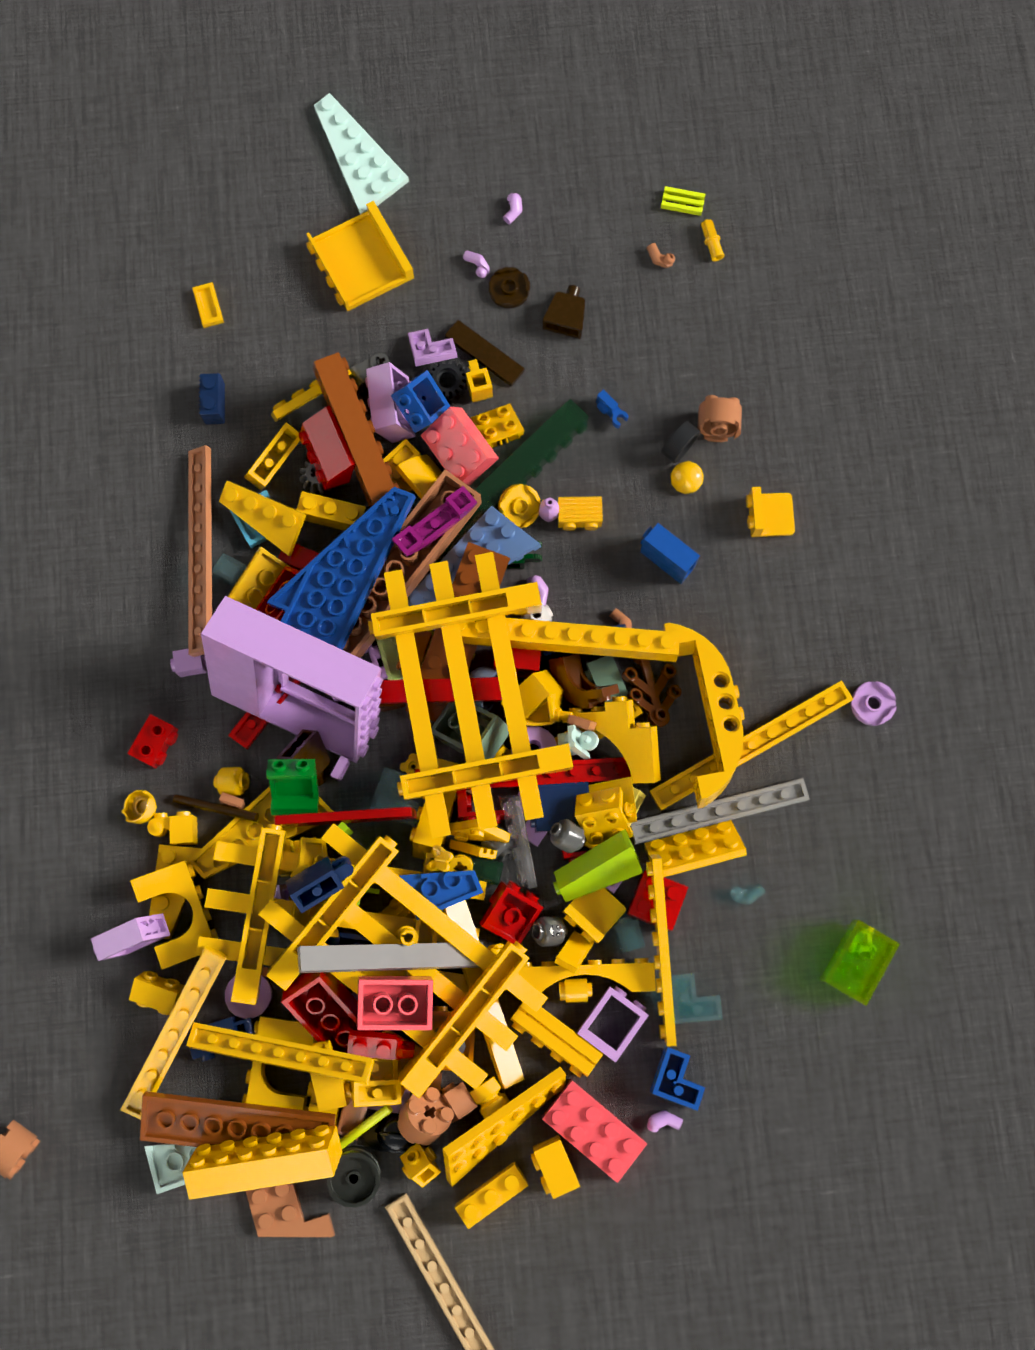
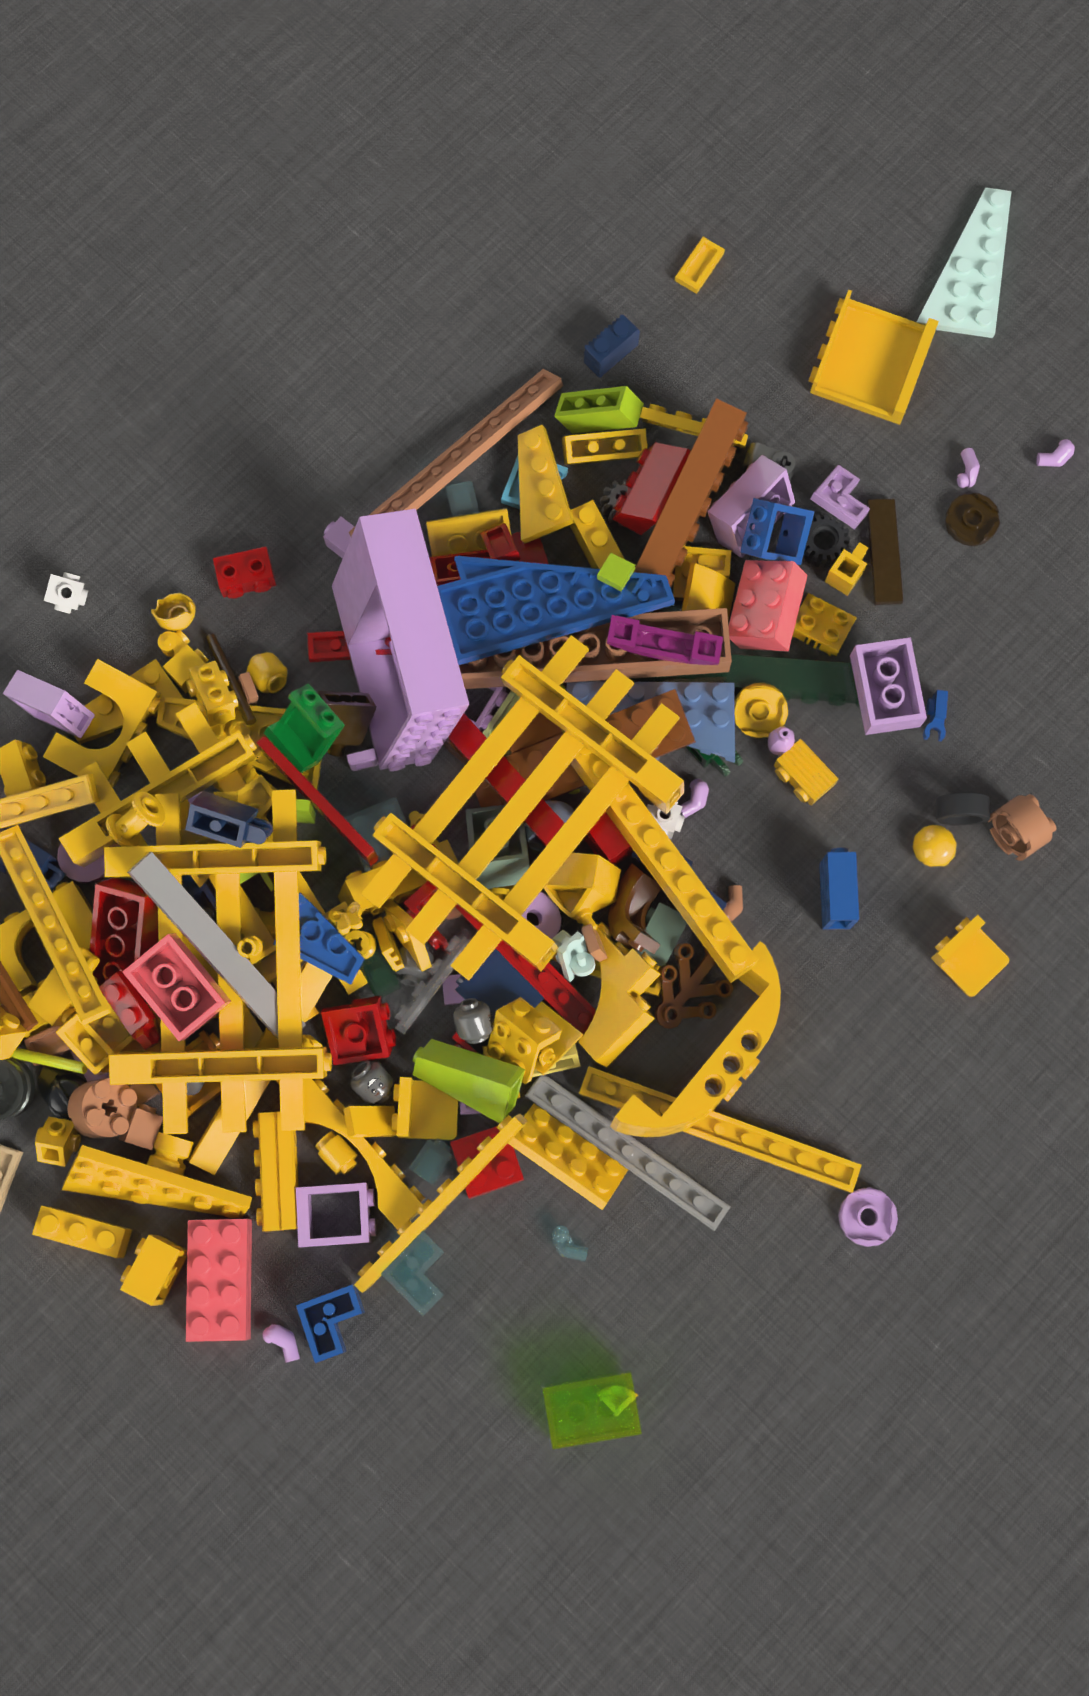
camera: 50 degrees right, 0 degrees up
(54, 866) = (58, 584): none -> white brick
(216, 826) = (212, 693): none -> yellow brick
(248, 439) = (599, 409): none -> lime brick
(265, 930) = (144, 811): none -> yellow hose
(281, 569) = (500, 543): none -> red tile
(366, 513) = (616, 572): none -> lime tile
(566, 313) = (994, 593): dark brown torso -> none
(573, 419) = (888, 686): none -> lavender brick

